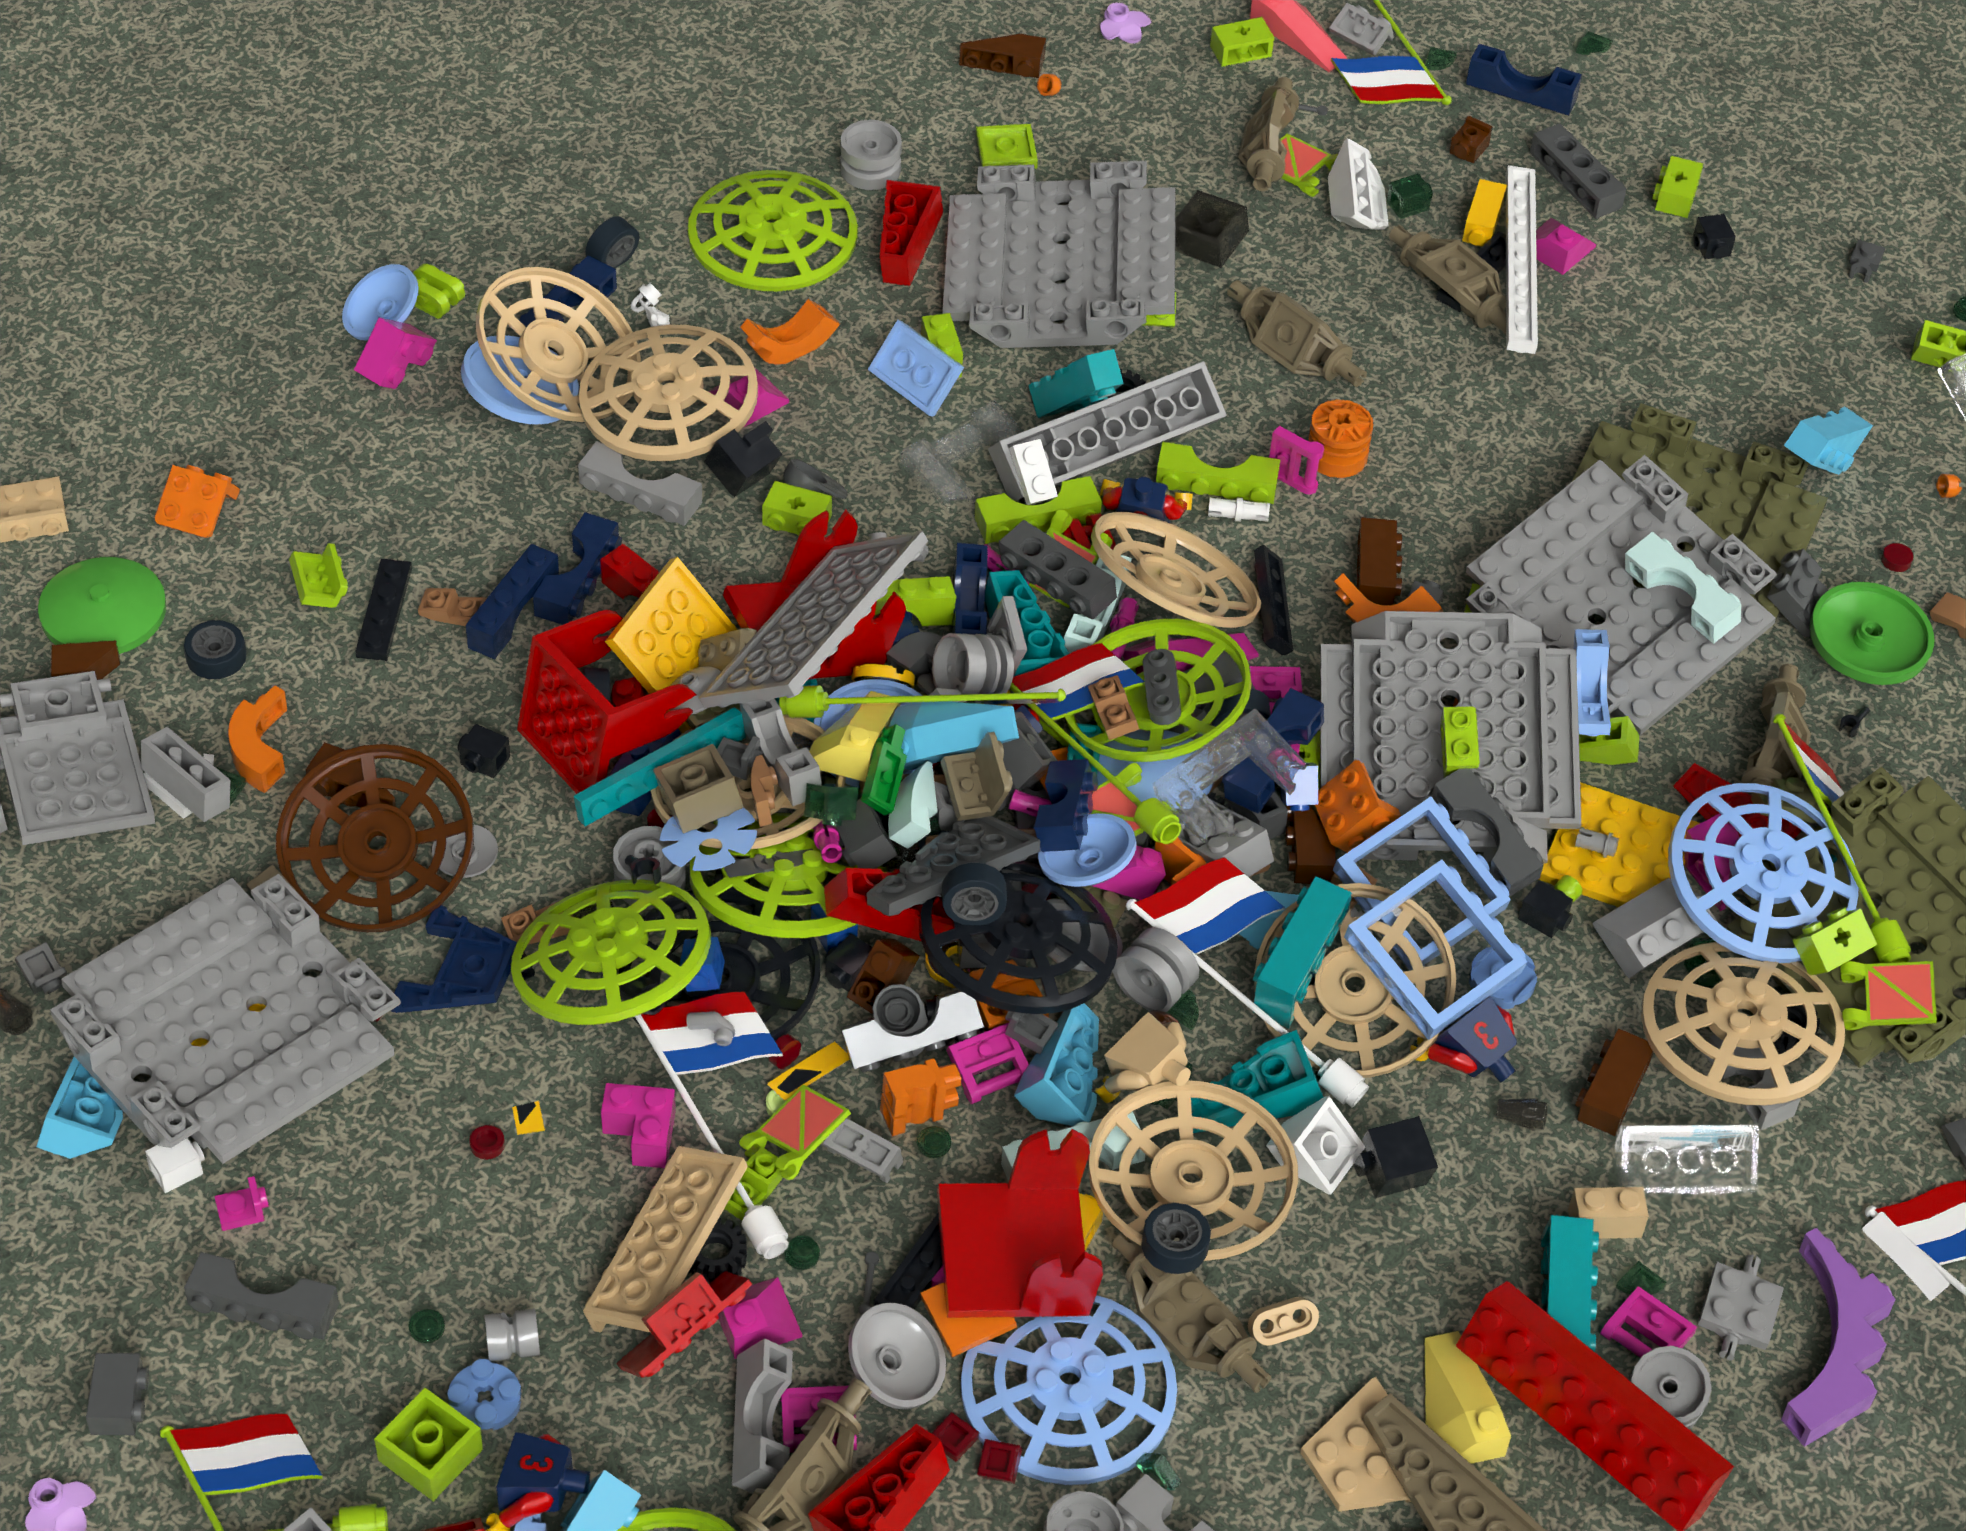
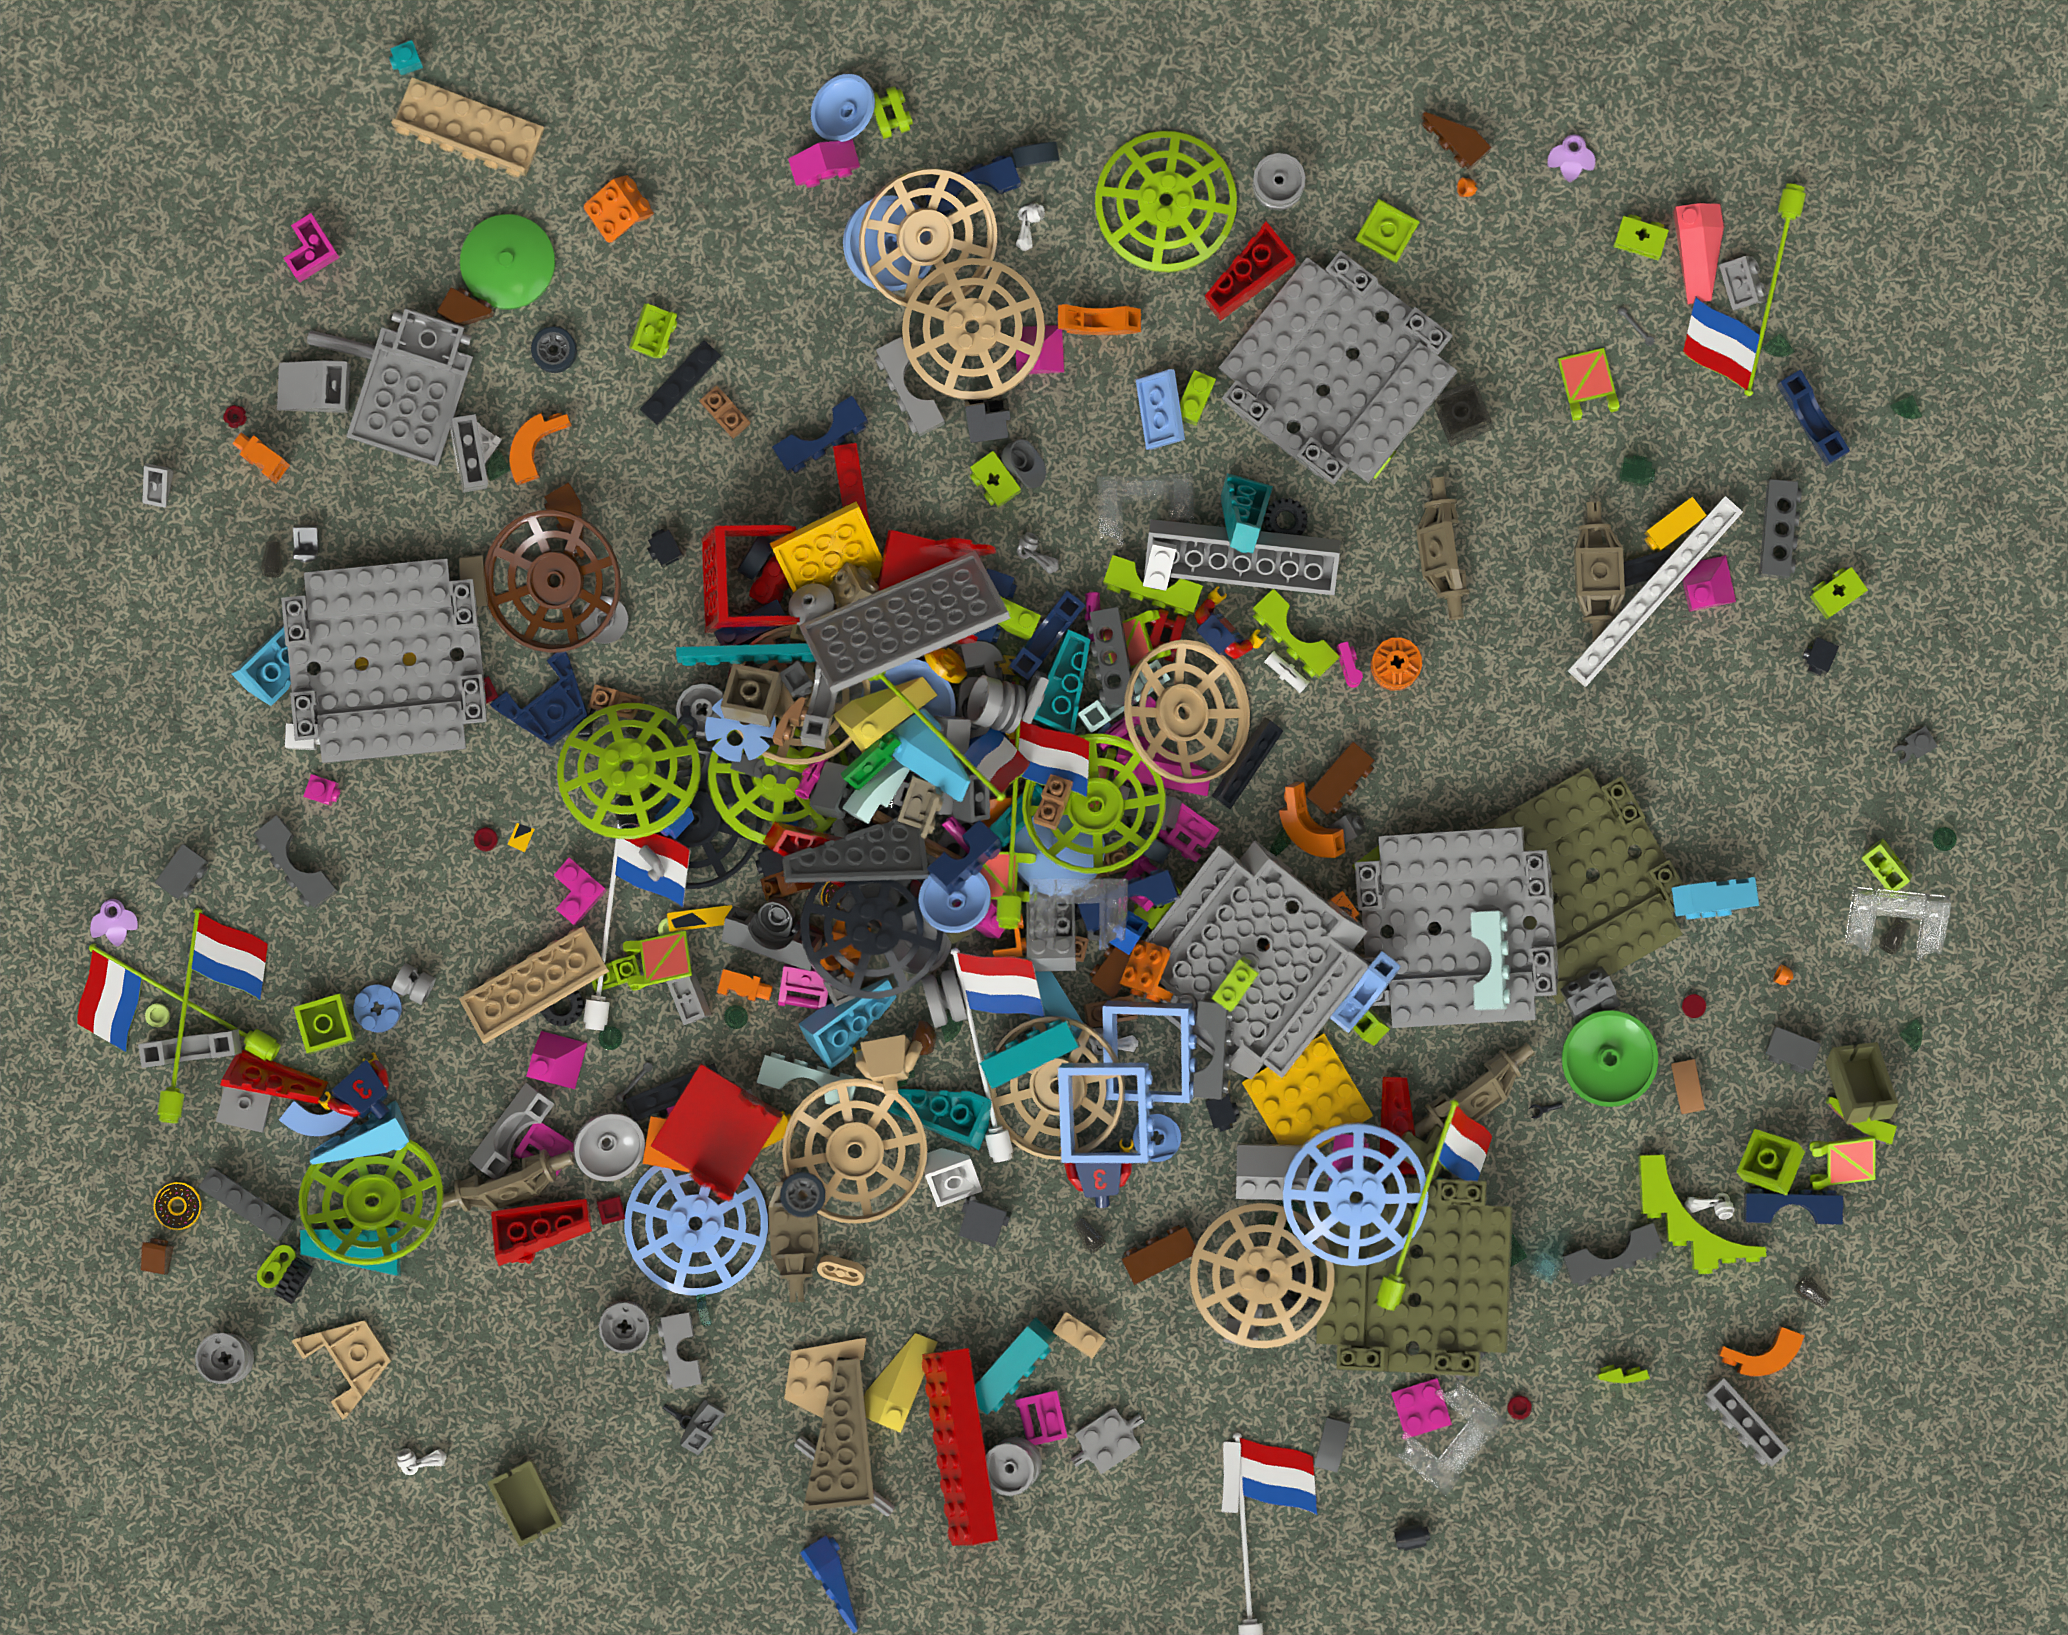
camera: 45 degrees right, 35 degrees up
(426, 1326) = (374, 942): clear green plate -> none
(495, 619) = (767, 432): dark blue arch -> none
(679, 1317) = (508, 1048): red bracket -> none
(790, 1049) = (694, 896): dark red tile -> none
(831, 803) = (821, 762): clear green brick -> none
(974, 894) = (846, 900): black wheel -> none
(999, 1461) = (622, 1244): dark red tile -> none
(1162, 687) = (1091, 819): dark grey plate -> none
(1260, 145) = (1574, 345): dark tan plate -> none
(1357, 189) = (1598, 448): white wedge -> none
(1471, 140) = (1736, 448): reddish brown brick -> none
(1569, 886) = (1246, 1106): lime hinge -> none
(1597, 842) = (1288, 1091): light grey pin -> none
(1643, 1277) = (1065, 1385): clear green tile -> none
(1688, 1158) = (1154, 1335): clear slope -> none
(1834, 941) = (1354, 1270): brick -> none
(1854, 1307) = (1169, 1487): medium lavender arch -> none
(1894, 993) = (1362, 1327): flag -> none

